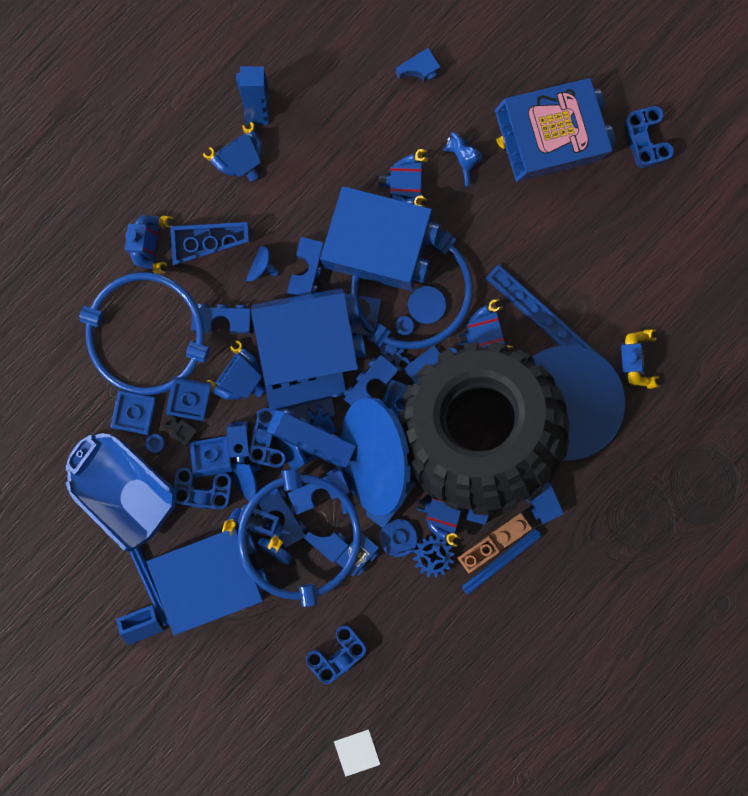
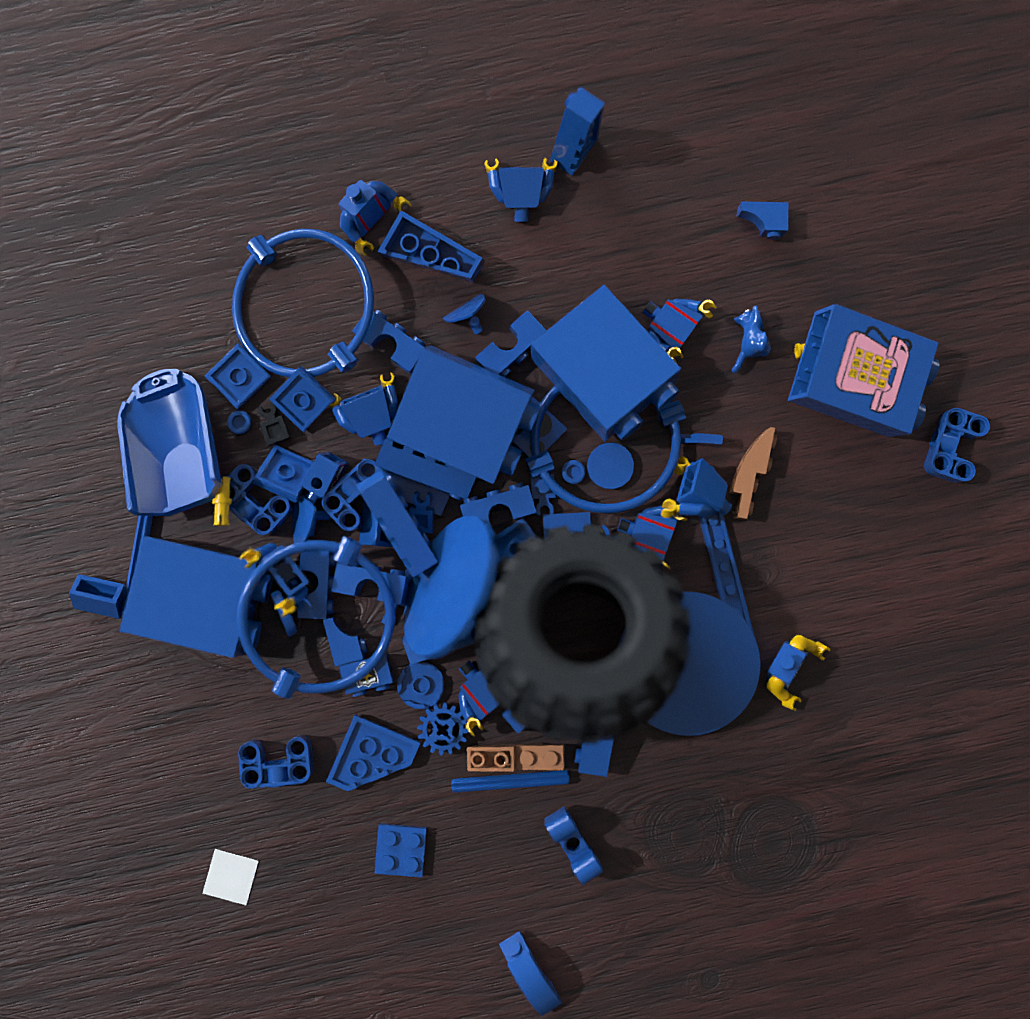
camera: 40 degrees right, 0 degrees up
(182, 503) = (222, 502): none -> yellow pin
(395, 606) = (370, 754): none -> blue plate
(459, 657) = (400, 850): none -> blue plate
(476, 246) = (702, 439): none -> blue tile
(499, 282) = (700, 491): none -> blue torso
(522, 238) = (754, 462): none -> nougat slope
(582, 578) = (582, 857): none -> blue beam
(600, 679) = (529, 975): none -> blue arch

